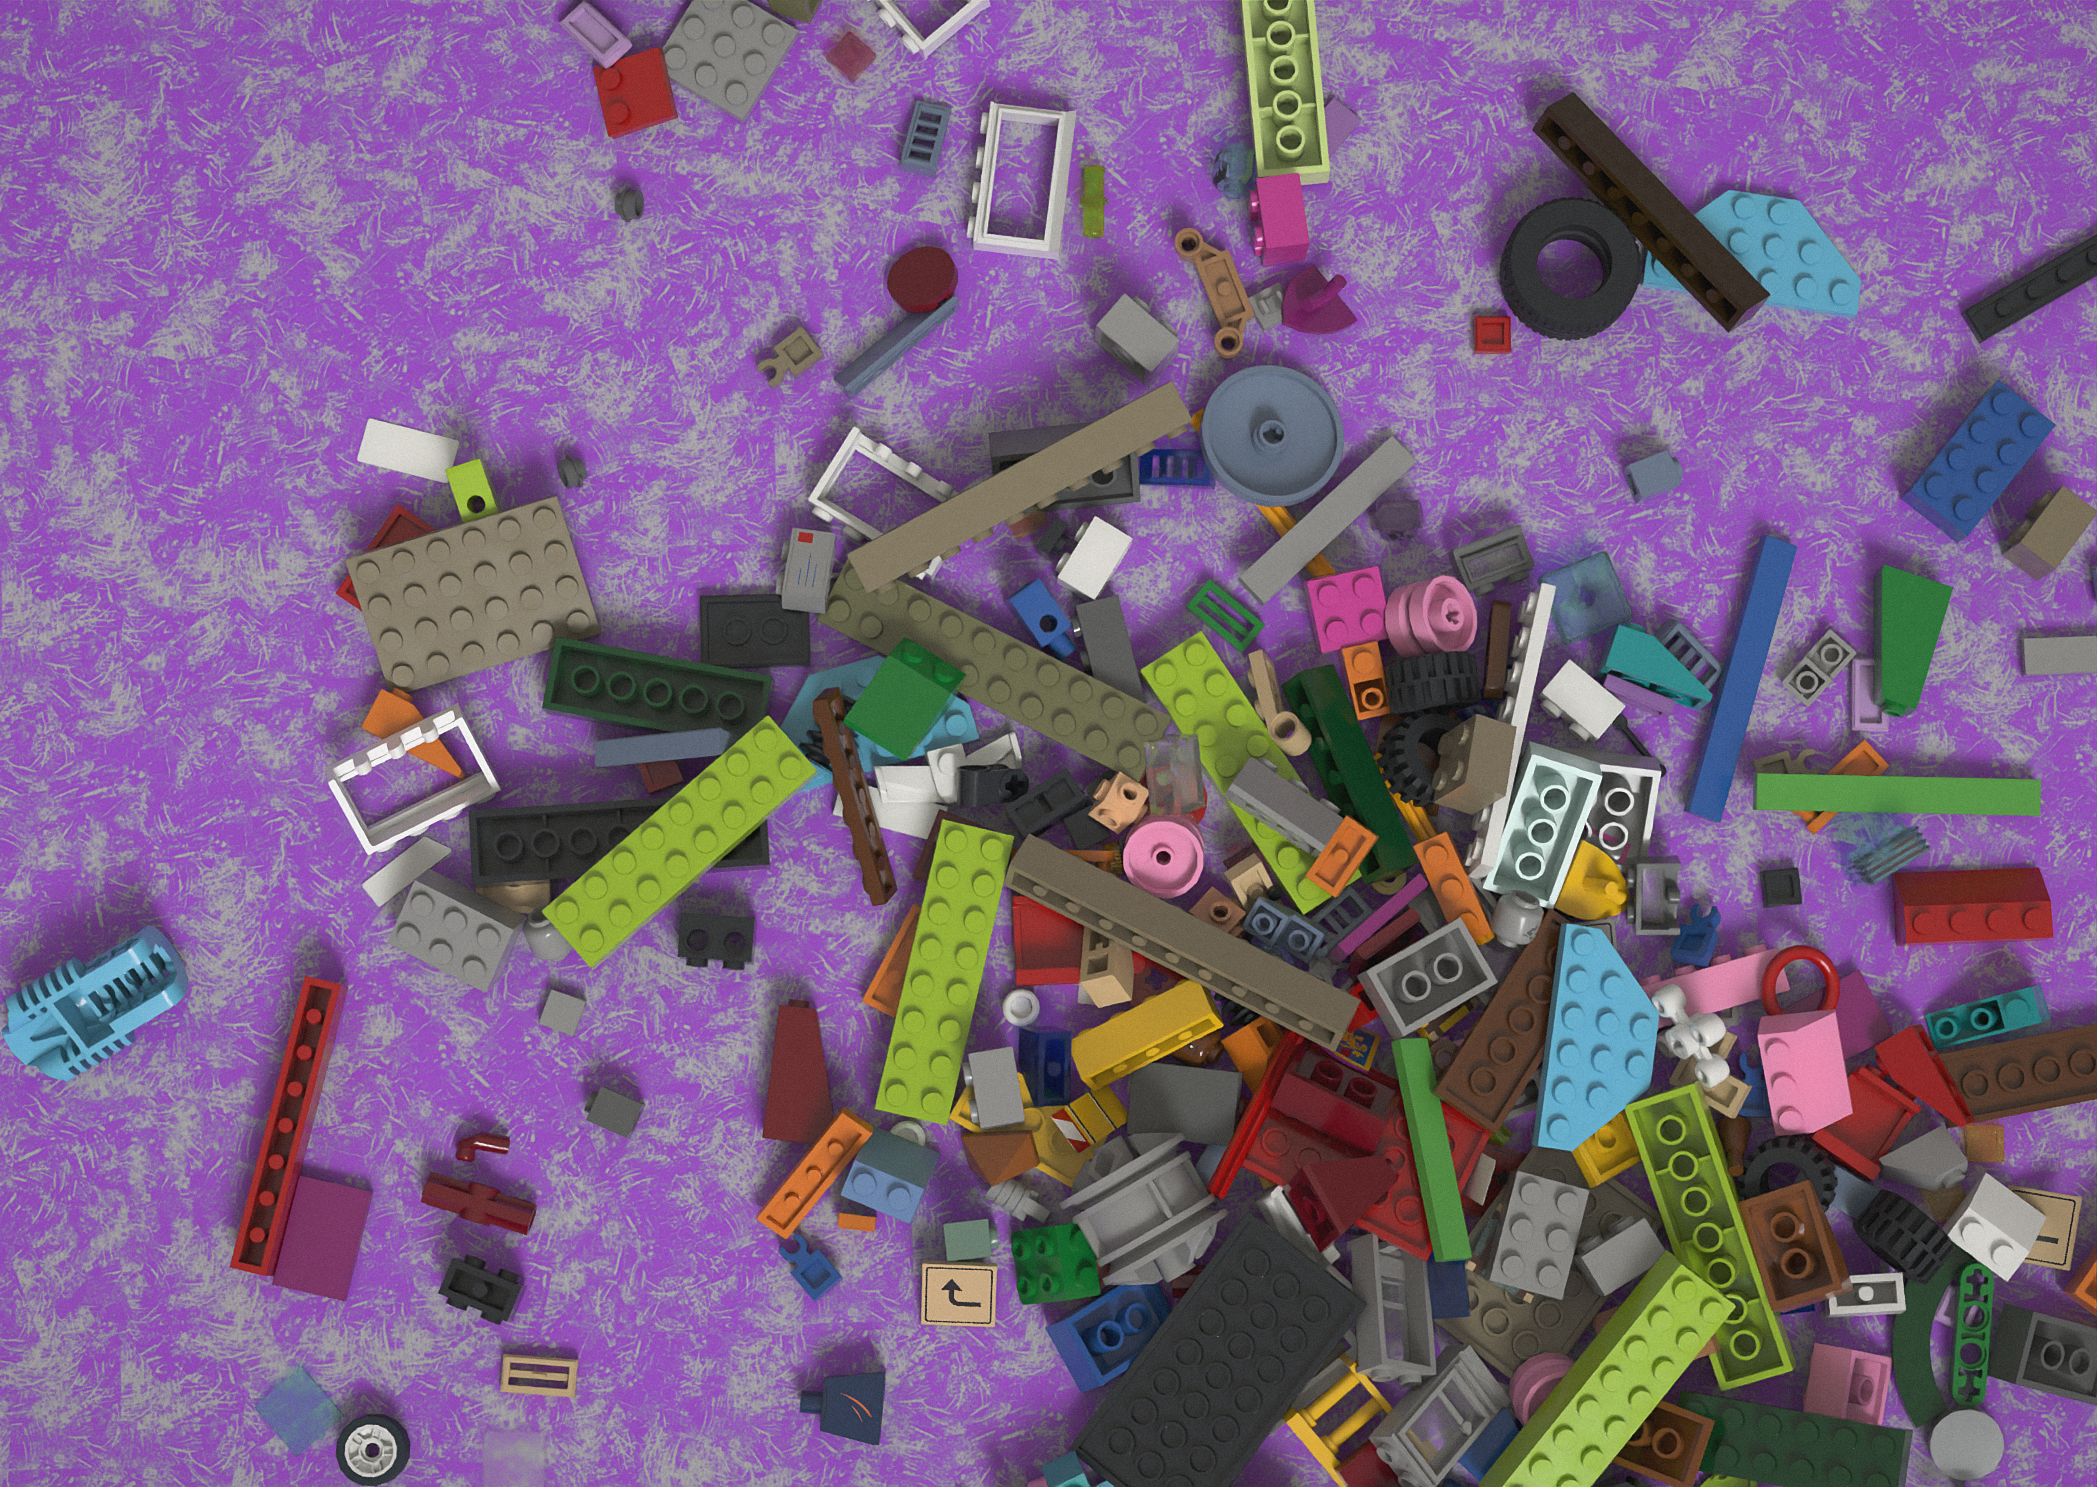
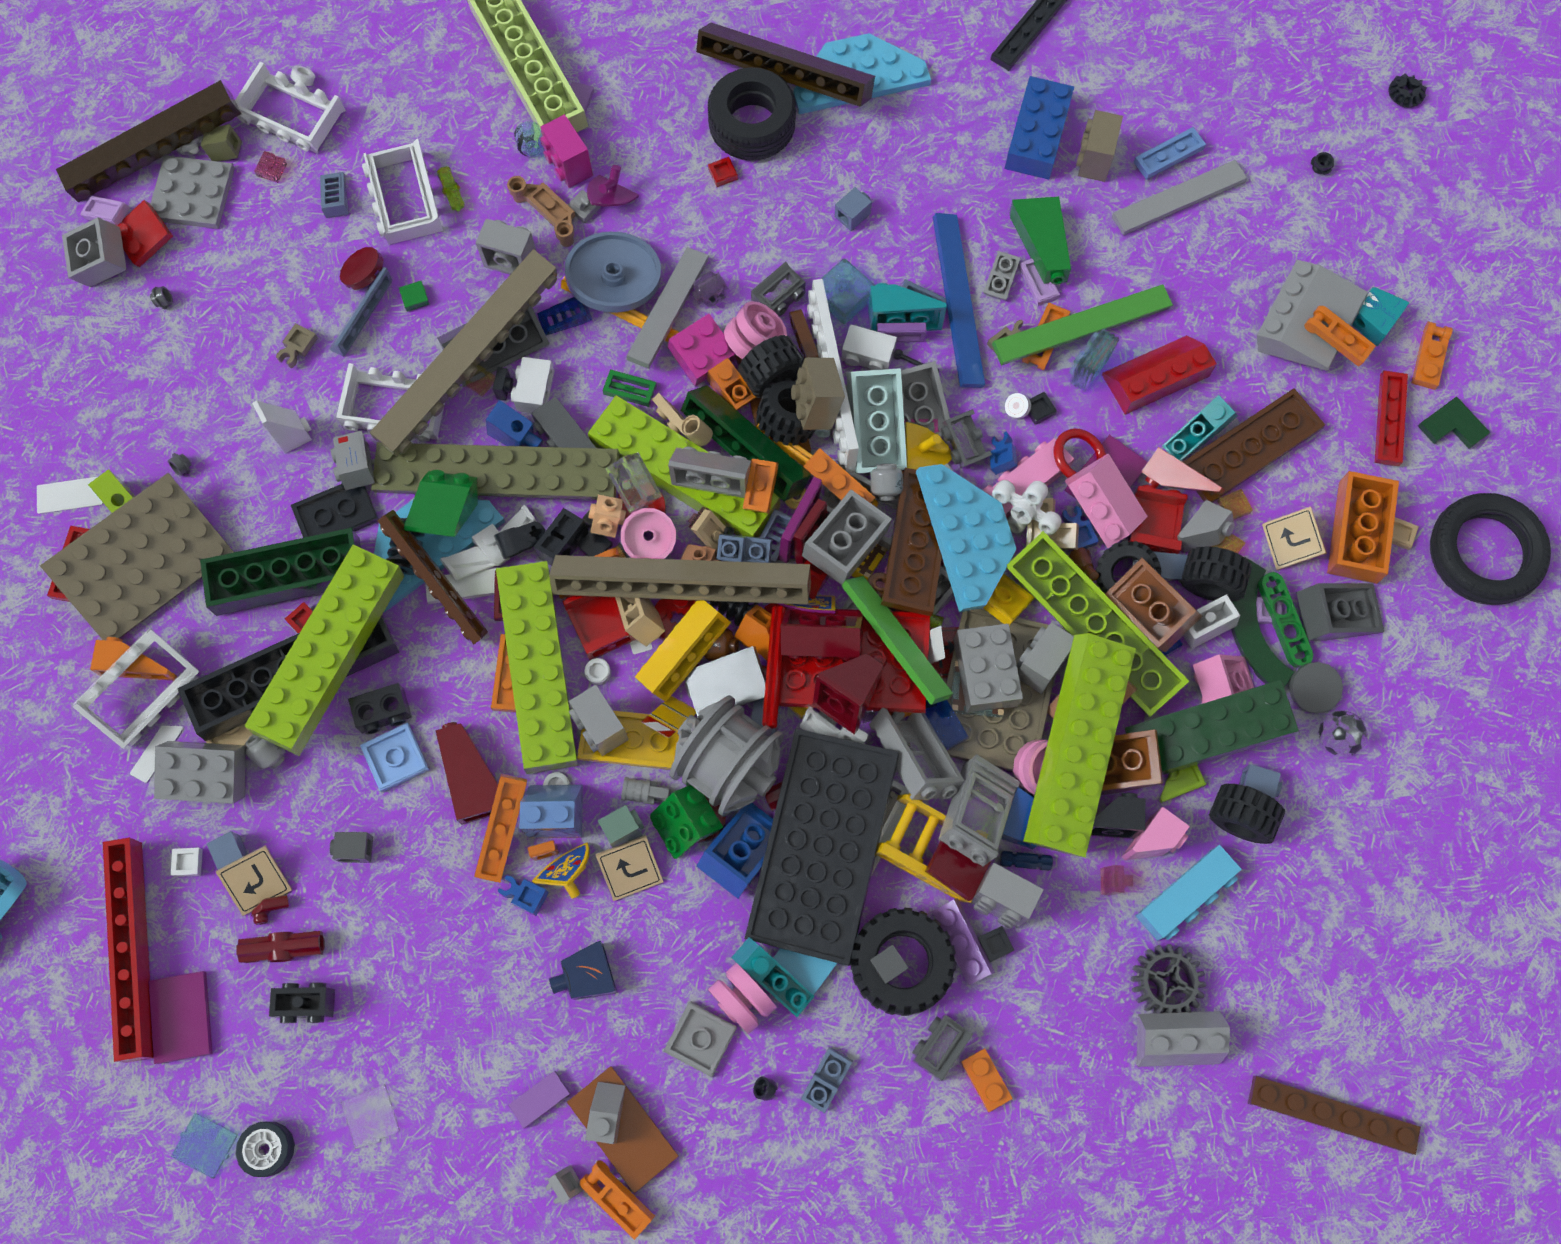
camera: 20 degrees left, 10 degrees down
(397, 1039) = (186, 862): none -> white plate
(455, 1054) = (227, 849): none -> sand blue brick
(475, 1102) = (253, 879): none -> tan piece
(561, 103) = (94, 252): none -> light grey brick
(562, 1012) = (294, 799): light grey tile -> none
(571, 1378) = (342, 1054): tan tile -> none
(663, 747) = (294, 597): sand blue slope -> none
(711, 1011) = (394, 757): none -> light blue tile
(735, 484) = (283, 425): none -> white slope
(876, 1259) = (565, 869): none -> shield
(980, 348) = (413, 296): none -> green tile
(1000, 1154) = (620, 765): dark orange slope -> none
(1046, 1064) = (626, 695): clear blue slope -> none
(1751, 874) = (1017, 405): none -> white tile
(1995, 1226) = (1269, 546): white slope -> none

